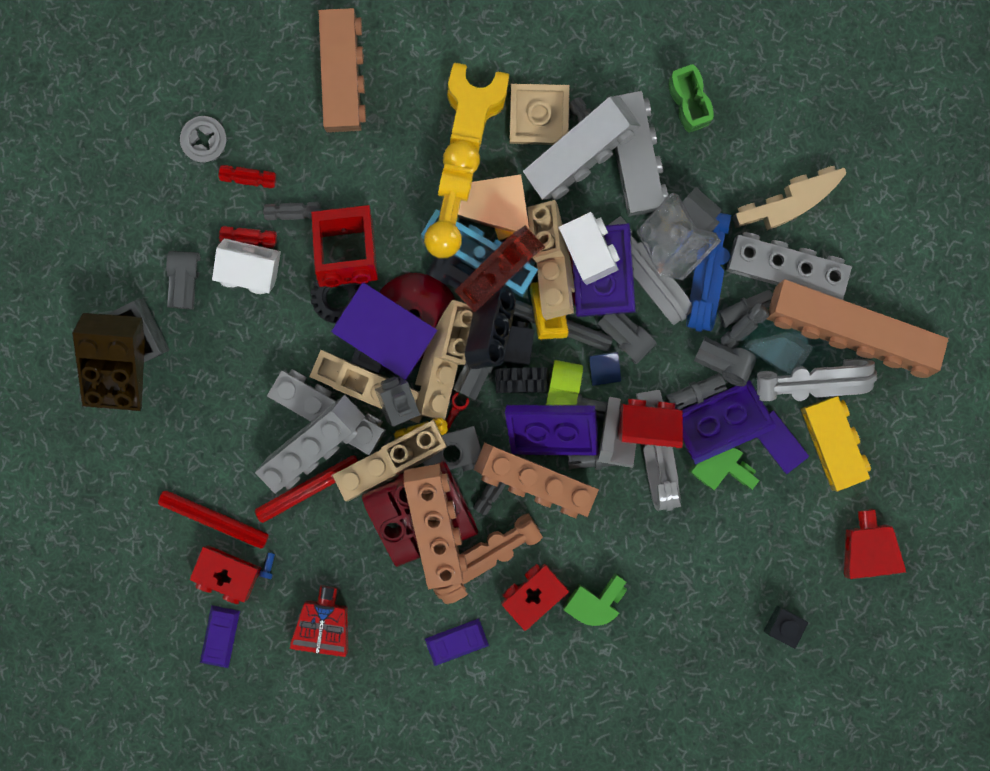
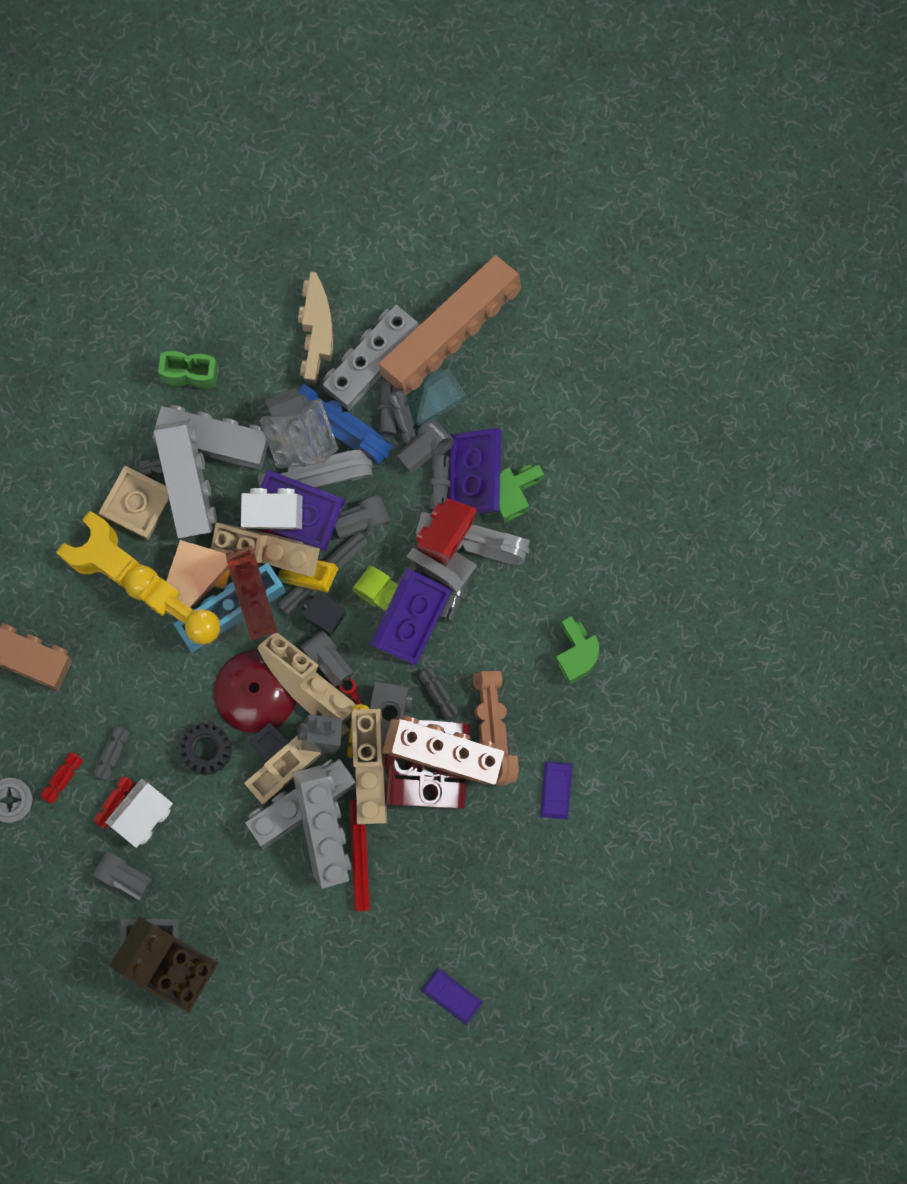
camera: 65 degrees left, 10 degrees down
(213, 519) = (345, 951): red axle -> none
(216, 561) = (403, 946): red brick -> none
(267, 568) = (415, 927): blue piece -> none
(322, 625) = (484, 897): torso -> none
(342, 222) = (144, 711): red window -> none
(384, 331) = (255, 718): dark purple tile -> none
(449, 271) = (231, 641): black piece -> none
(490, 331) = (300, 627): black beam -> none
(521, 380) = (356, 623): black tyre -> none
(530, 611) = (547, 685): red brick -> none
(536, 480) = (446, 650): nougat brick -> none
(604, 368) = (381, 550): dark blue slope -> none
(783, 446) = (521, 434): dark purple tile -> none
(786, 627) = (675, 502): black brick -> none
(836, 443) = (539, 388): yellow brick -> none
(851, 378) = (490, 350): light grey piece -> none
(871, 549) = (643, 400): red torso -> none

